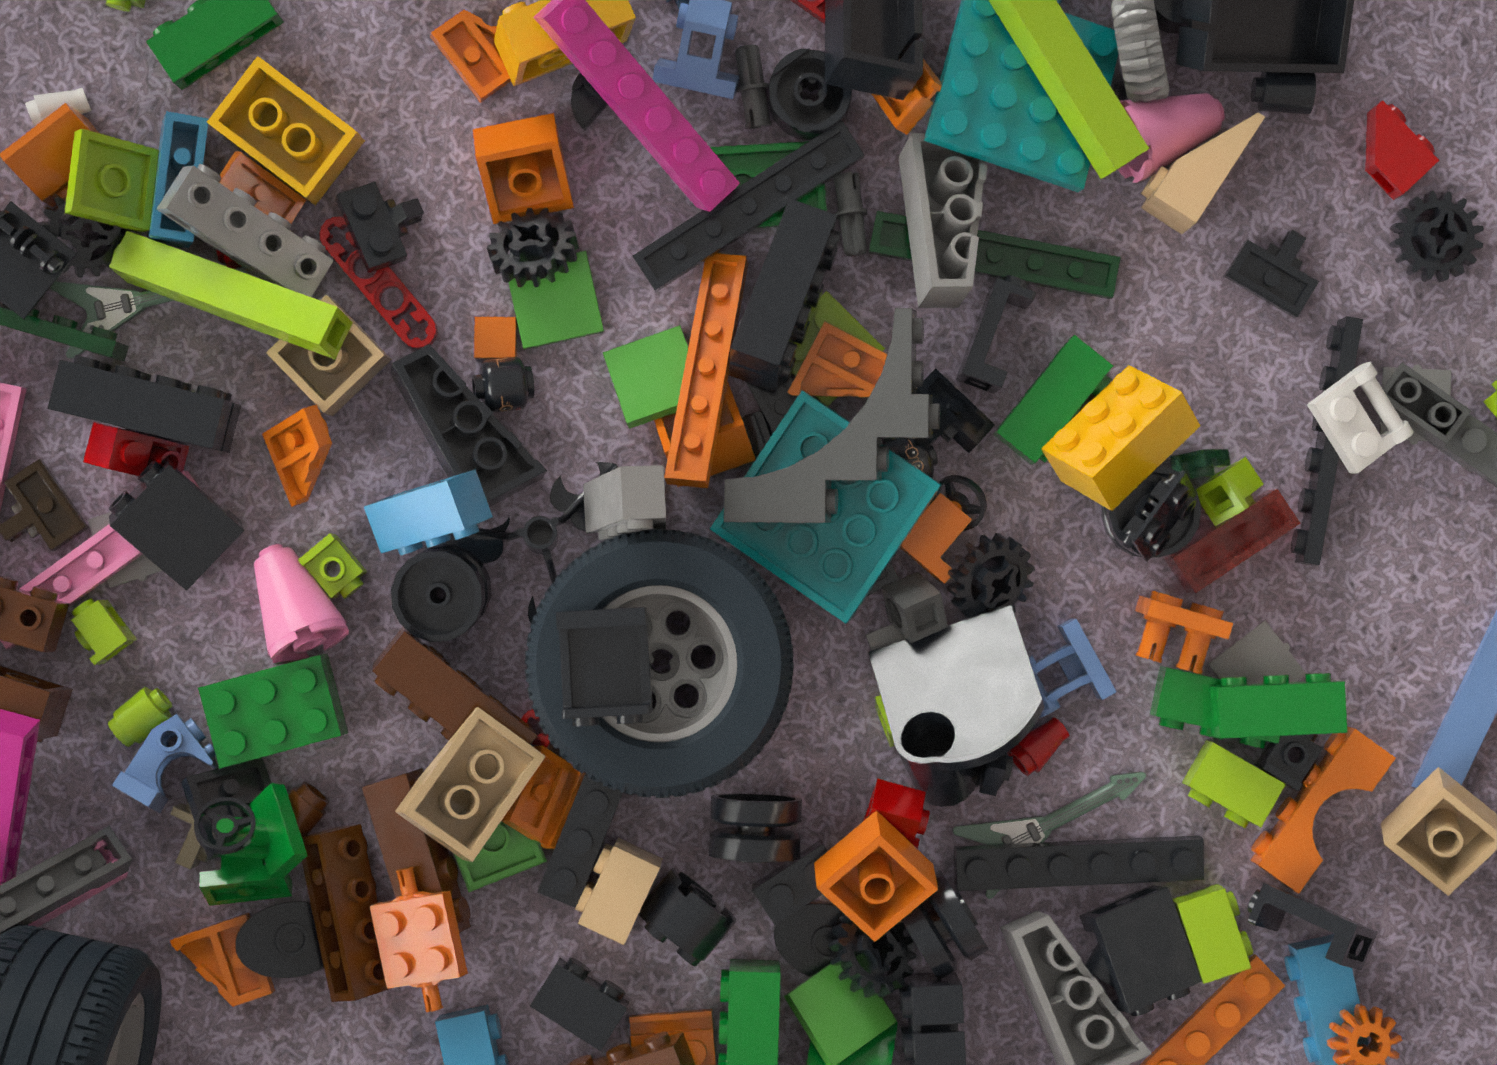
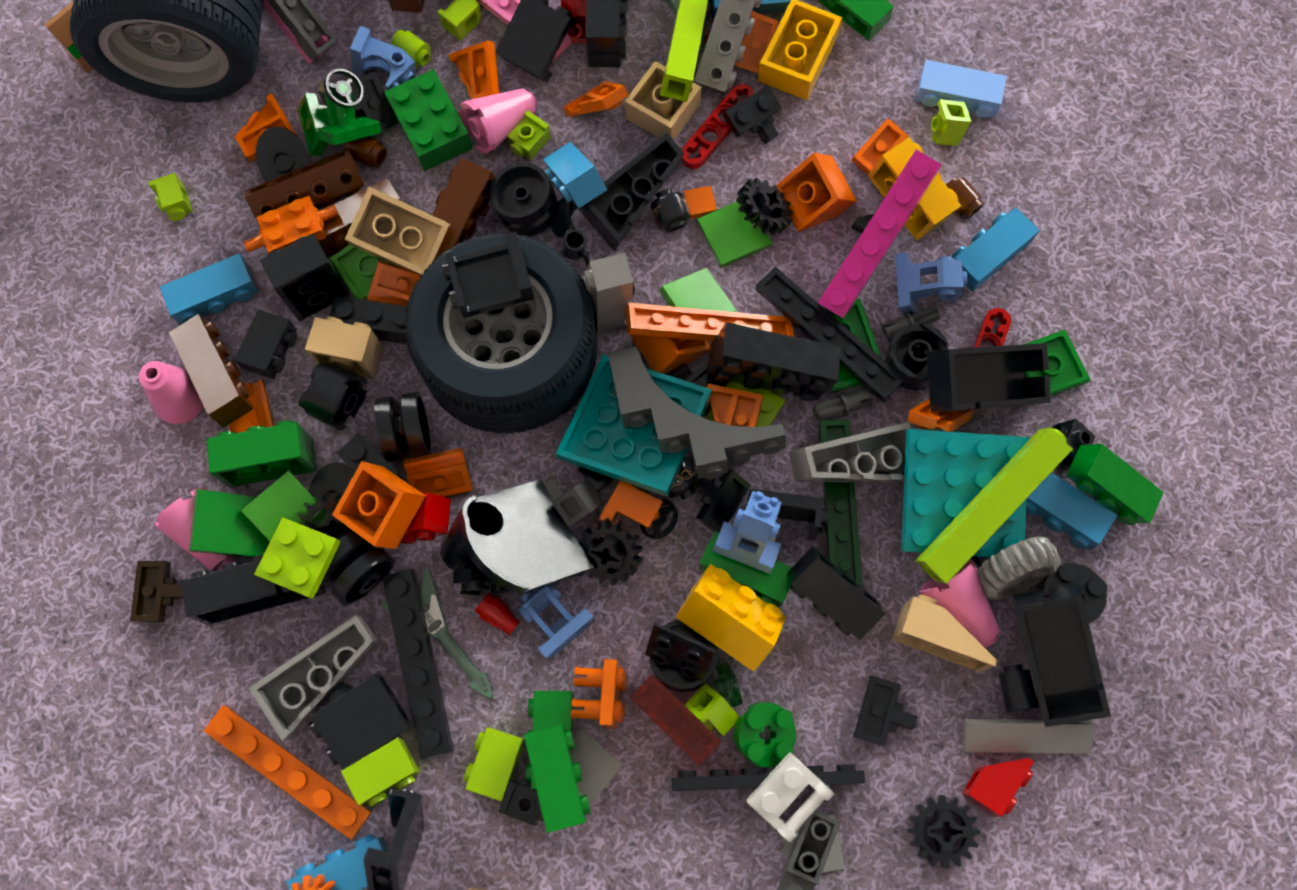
camera: 80 degrees right, 15 degrees down
(205, 621) = (478, 69): none -> orange wing
(504, 930) = (304, 276): none -> black brick
(830, 791) = (439, 473): none -> orange plate
(927, 995) = (297, 558): none -> lime plate
(1025, 382) = (756, 527): none -> medium blue tile
(1118, 294) = (835, 594): none -> black brick
(1286, 414) = (781, 739): none -> green plate
(1289, 848) = (526, 852): orange arch -> none
(1344, 102) = (1026, 736): none -> light grey tile

